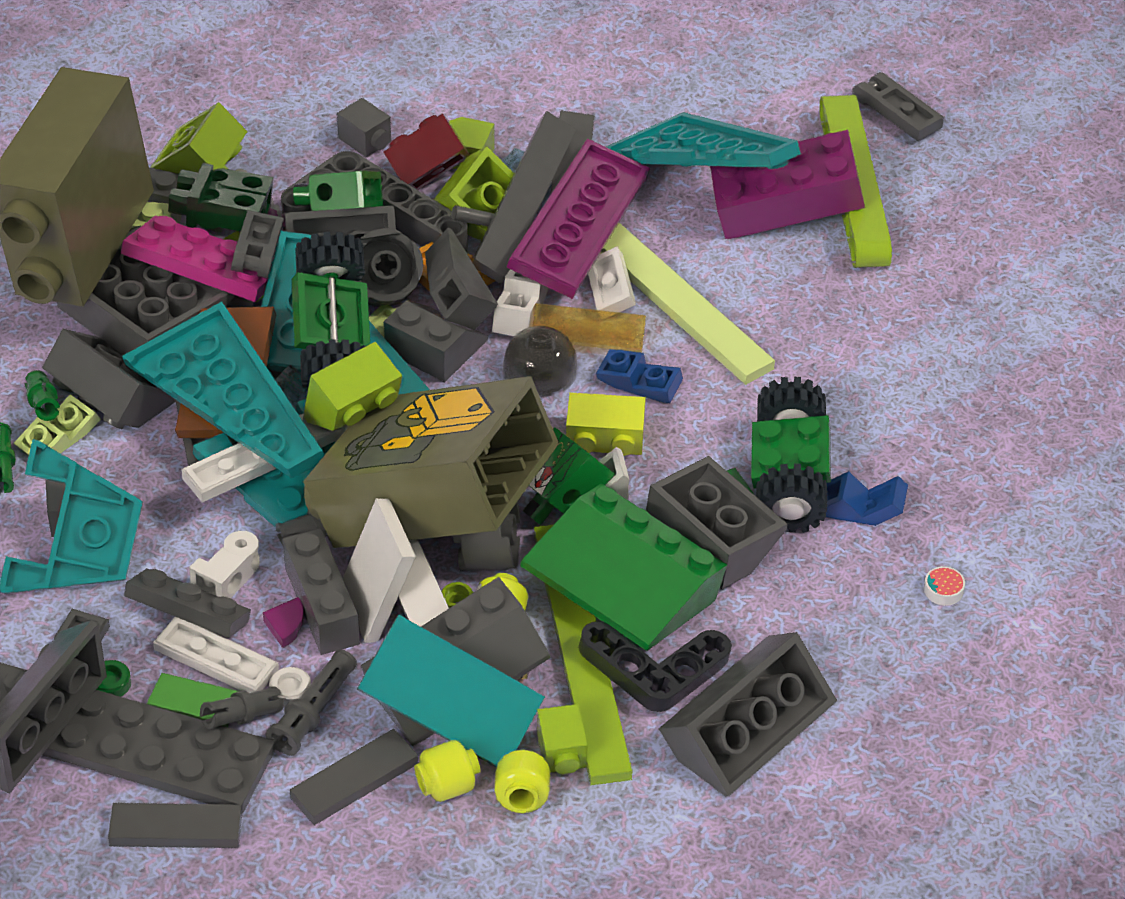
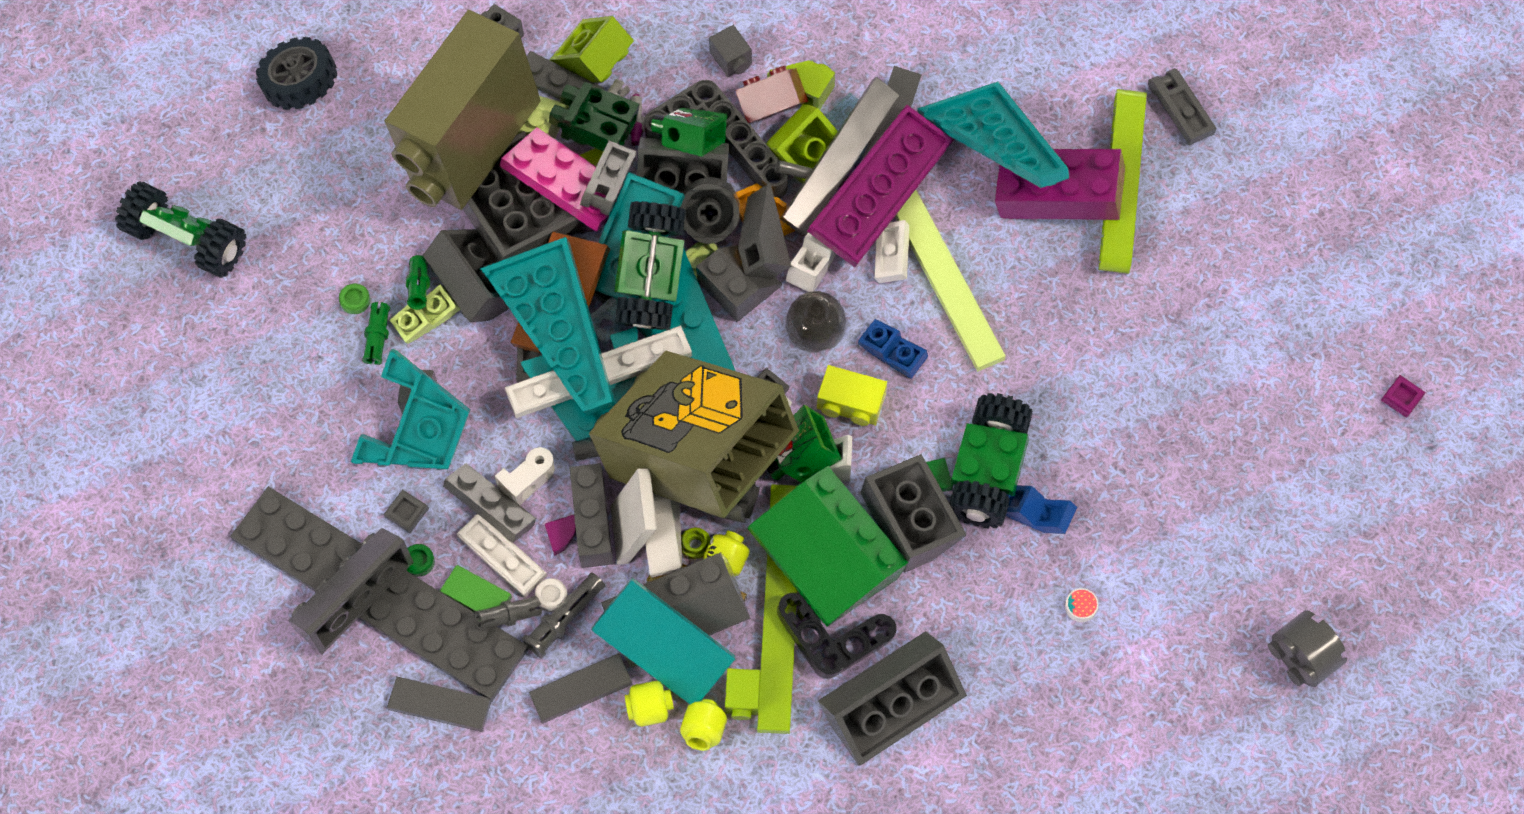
camera: 15 degrees right, 20 degrees up
(352, 388) = (647, 352): lime slope -> none
(594, 327) = (864, 295): clear yellow plate -> none

